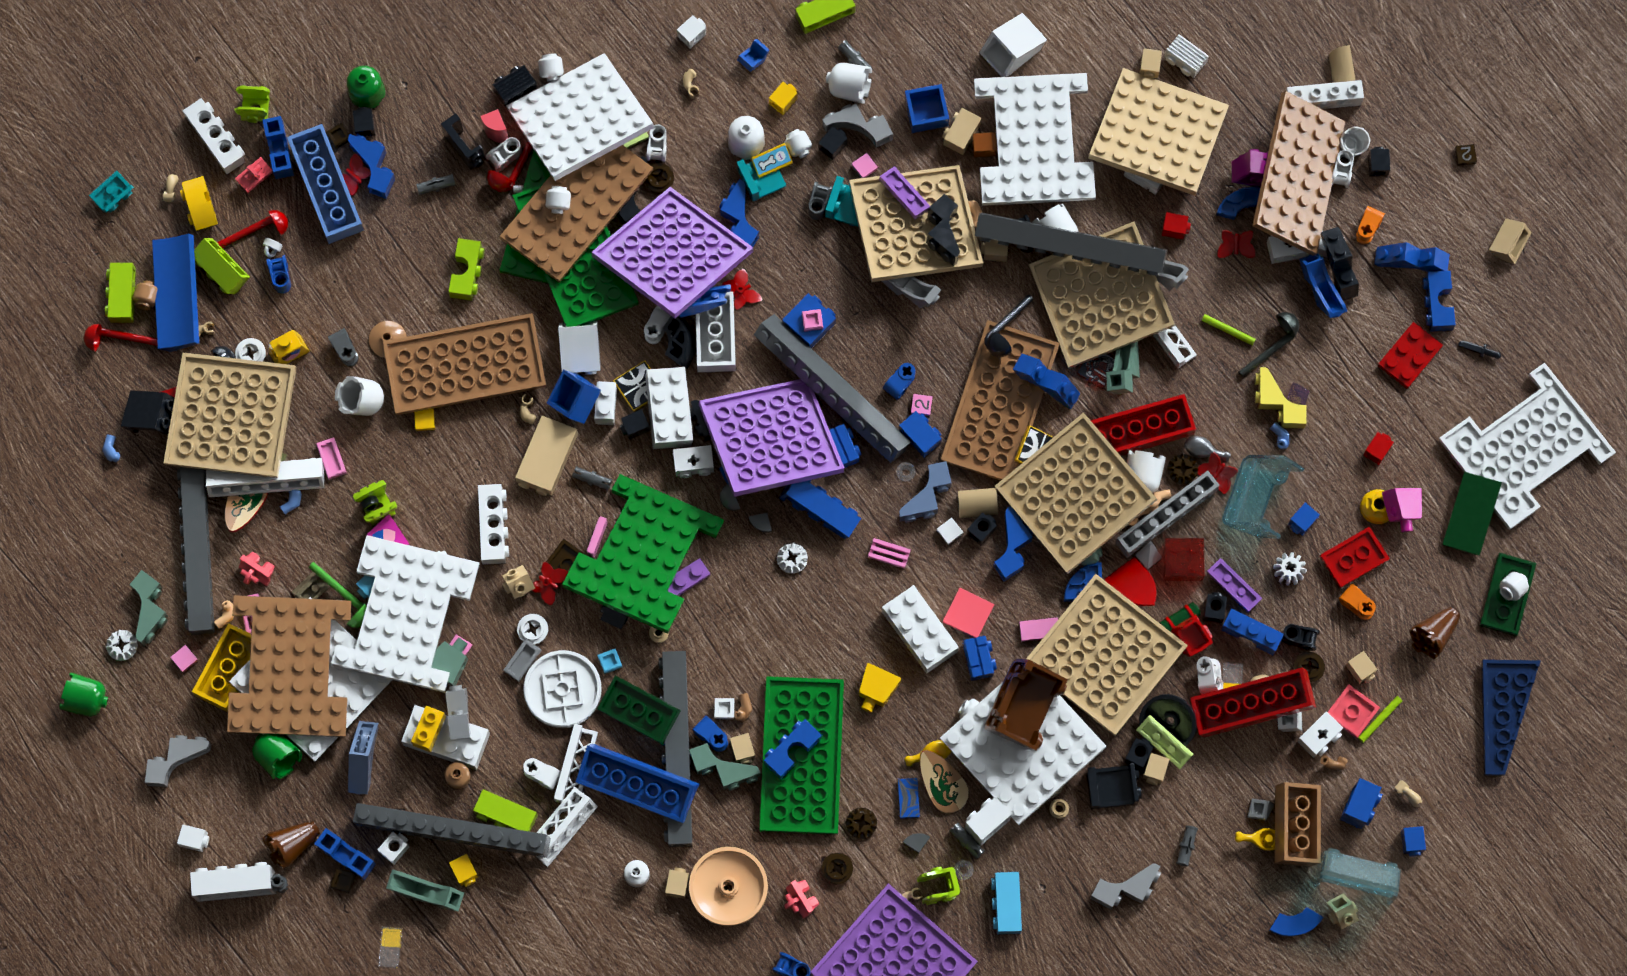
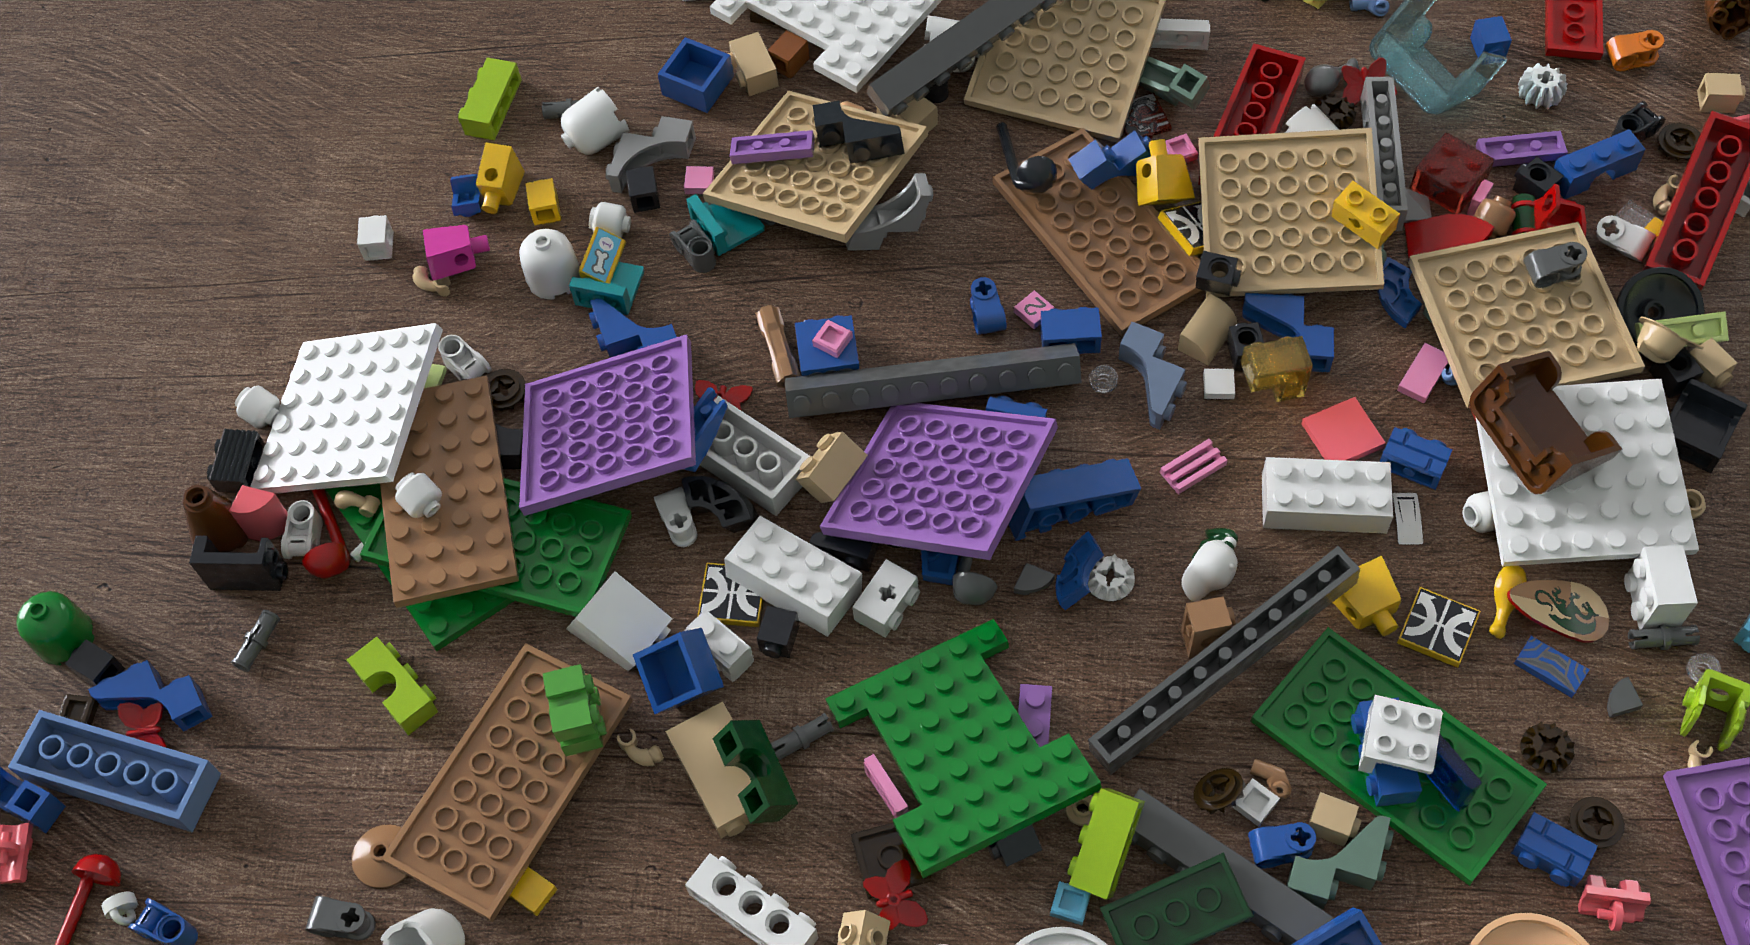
camera: 45 degrees left, 15 degrees down
(472, 106) = (209, 516): none -> reddish brown cone
(513, 367) = (574, 709): none -> bright green brick
(540, 172) = (367, 505): none -> tan arm
(560, 461) = (748, 747): none -> dark green arch
(645, 654) = (1105, 842): none -> lime brick
(711, 683) = (1221, 779): none -> dark brown gear
(714, 79) = (452, 250): none -> dark pink torso
(737, 379) = (831, 466): none -> tan brick
(775, 63) = (498, 176): none -> yellow torso
(781, 643) = (1223, 660): none -> dark grey brick
(786, 538) = (1074, 577): none -> blue tile
(793, 747) = (1400, 735): none -> white bracket
(794, 623) = (1205, 623): none -> medium nougat brick
(799, 781) = (1453, 776): none -> tile
(801, 282) = (773, 329): none -> medium nougat axle
(806, 856) = (1554, 850): none -> blue brick
(834, 601) = (1212, 564): none -> white hair
(889, 732) = (1438, 627): none -> tile
(943, 677) = (1408, 518): none -> white sticker
(974, 554) = (1278, 366): none -> clear yellow brick
(1001, 476) = (1214, 262): none -> black brick
(1050, 411) = (1162, 177): none -> yellow torso
(1089, 404) = (1182, 145): none -> bright pink tile
(1094, 533) = (1365, 214): none -> yellow brick
(1139, 648) = (1555, 264): none -> dark grey piece
(1140, 735) = (1660, 342): none -> tan piece
(1168, 600) = (1497, 213): none -> medium nougat head
(1178, 585) = (1482, 192): none -> bright pink tile

